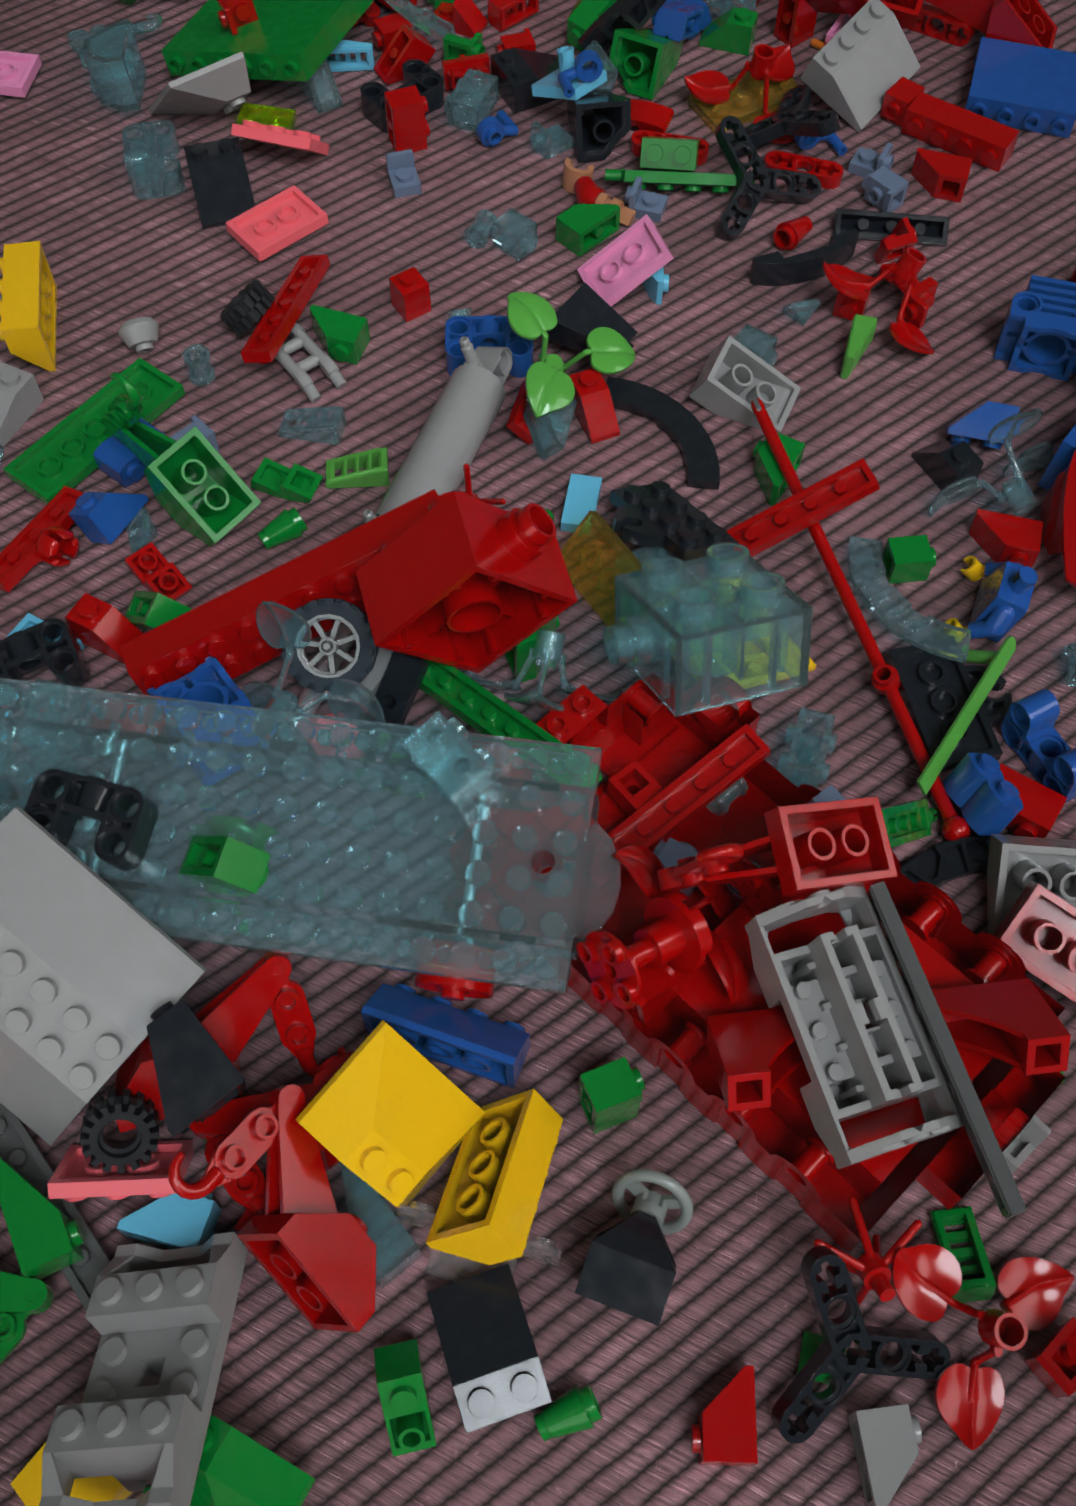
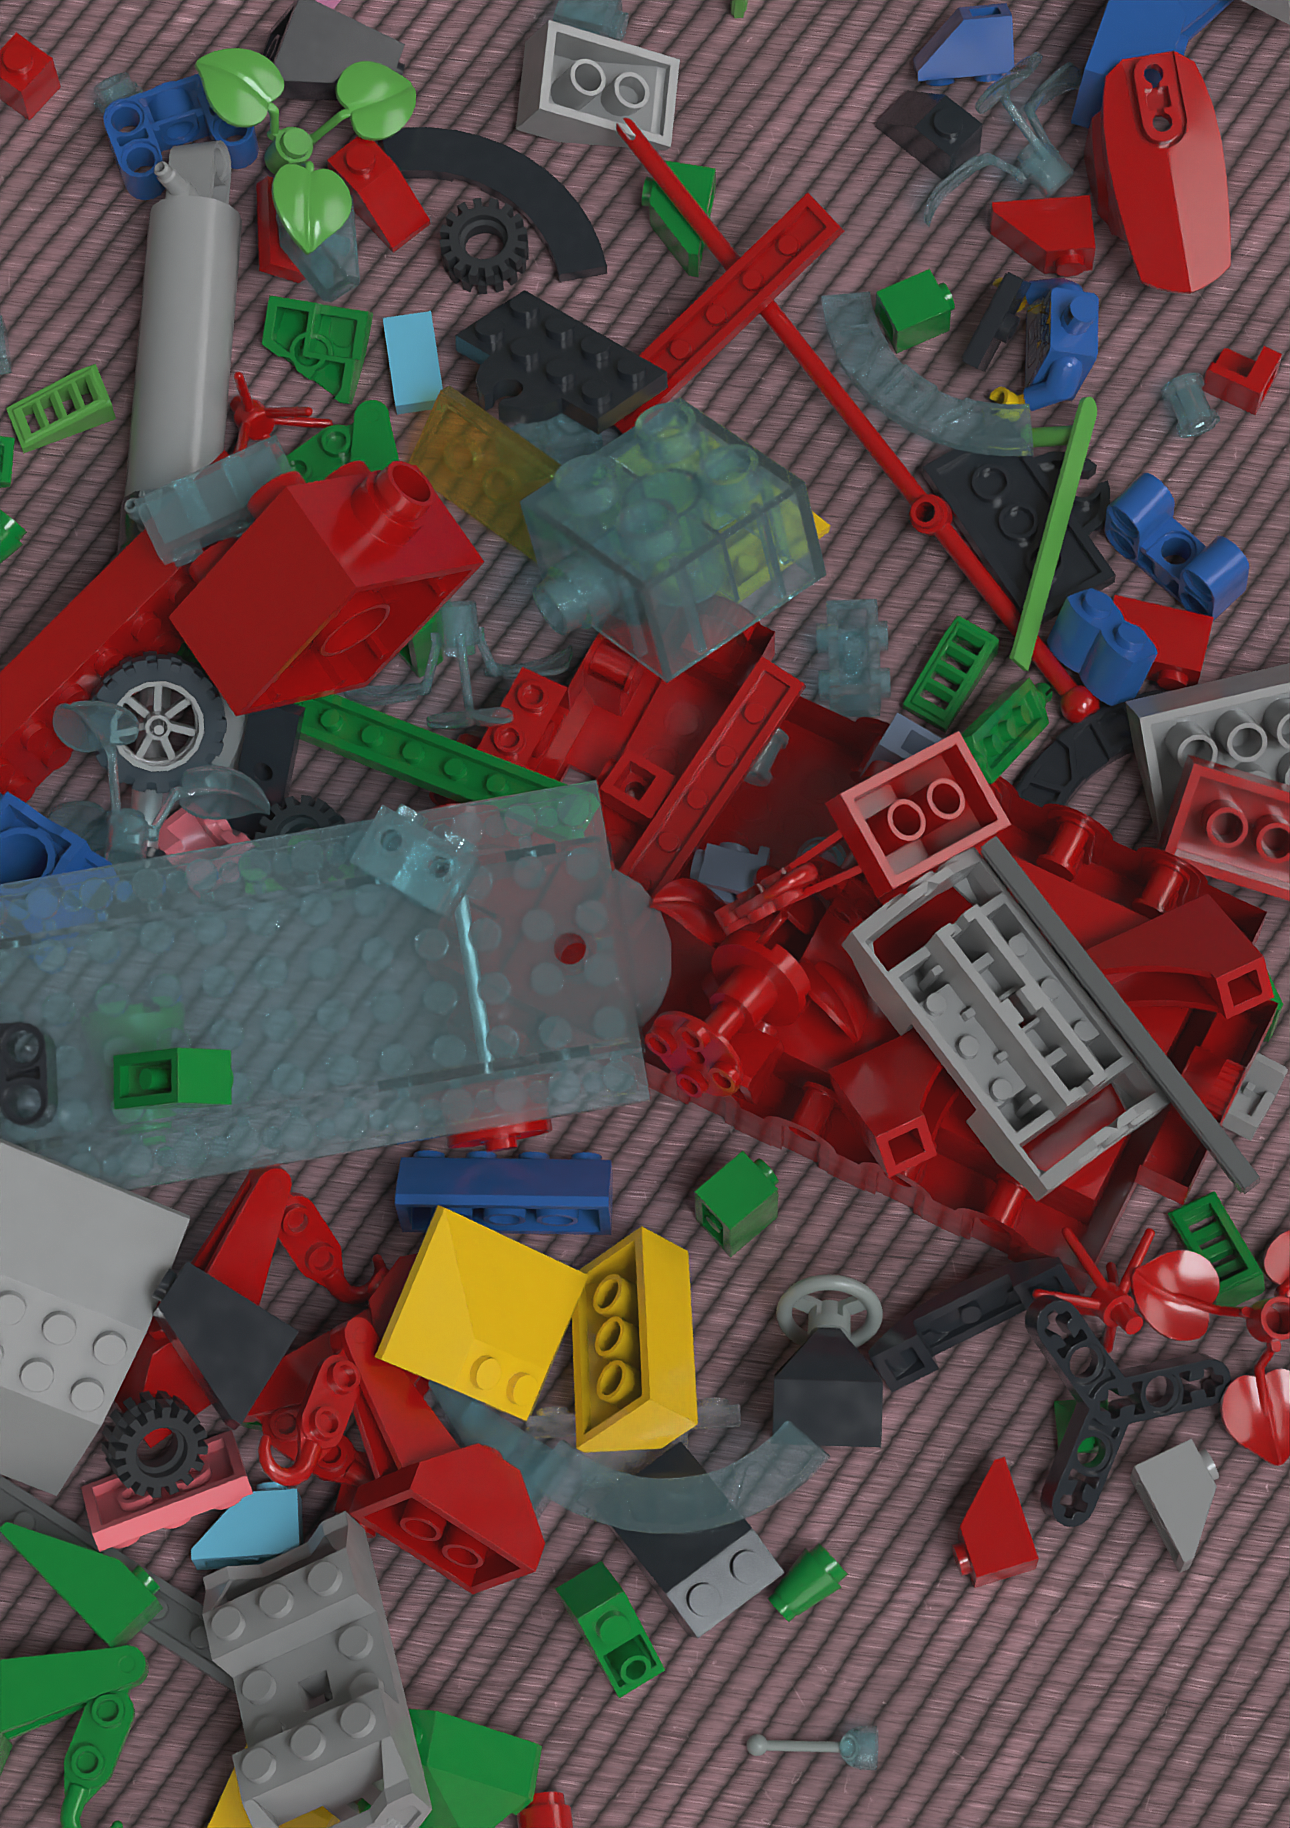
camera: 15 degrees left, 10 degrees up
(398, 507) = (209, 502): none -> clear light blue brick
(491, 1316) = (684, 1502): none -> clear light blue tile
(527, 474) = (320, 341): none -> green slope
(647, 438) = (478, 221): none -> black tyre
(752, 1236) = (960, 1313): none -> black slope
(886, 766) = (973, 638): none -> green slope
(962, 577) = (997, 323): none -> black plate

